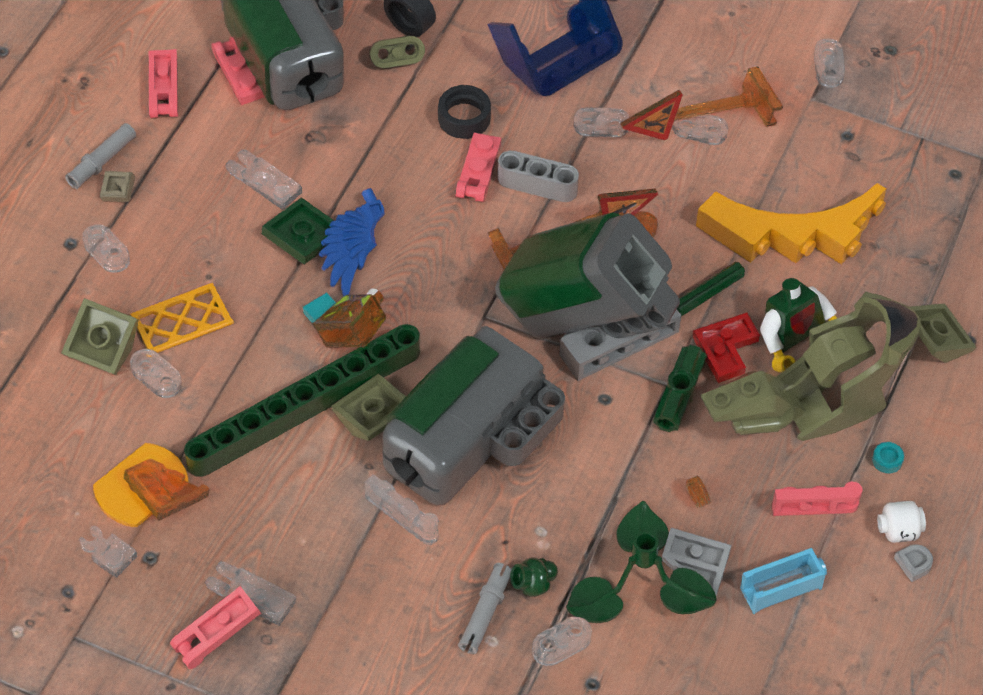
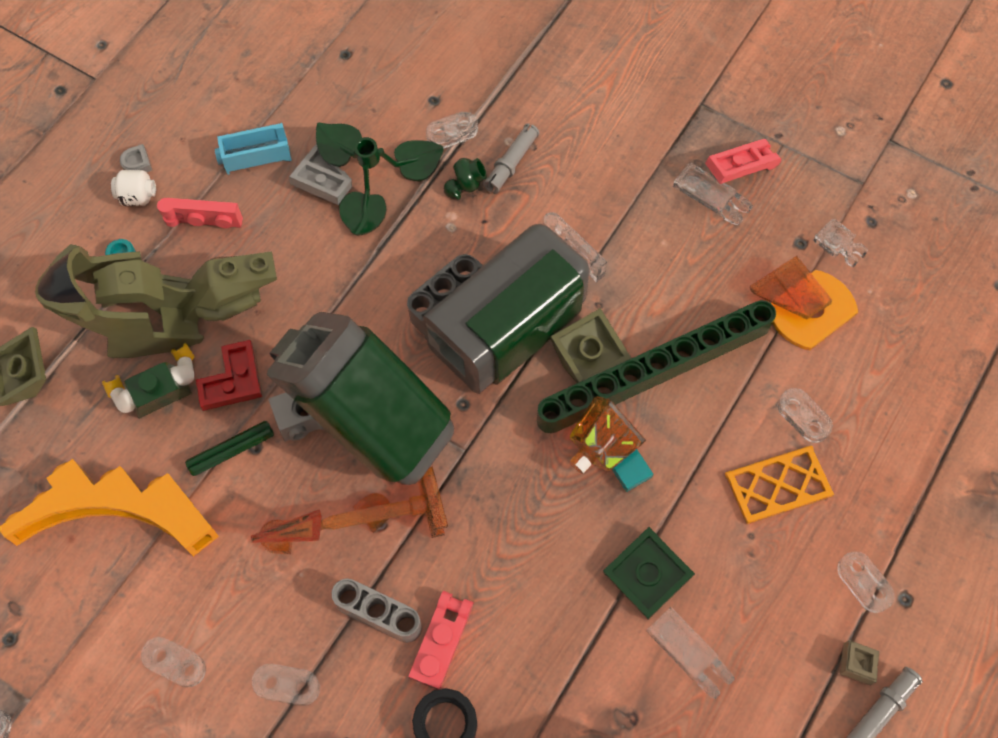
camera: 170 degrees left, 10 degrees up
(101, 337) = (865, 461): olive slope -> none
(351, 240) = (595, 553): blue animal -> none
(659, 117) = (89, 692): clear orange piece -> none
(675, 400) = (299, 315): dark green piece -> none
(698, 491) = (303, 233): clear orange tile -> none

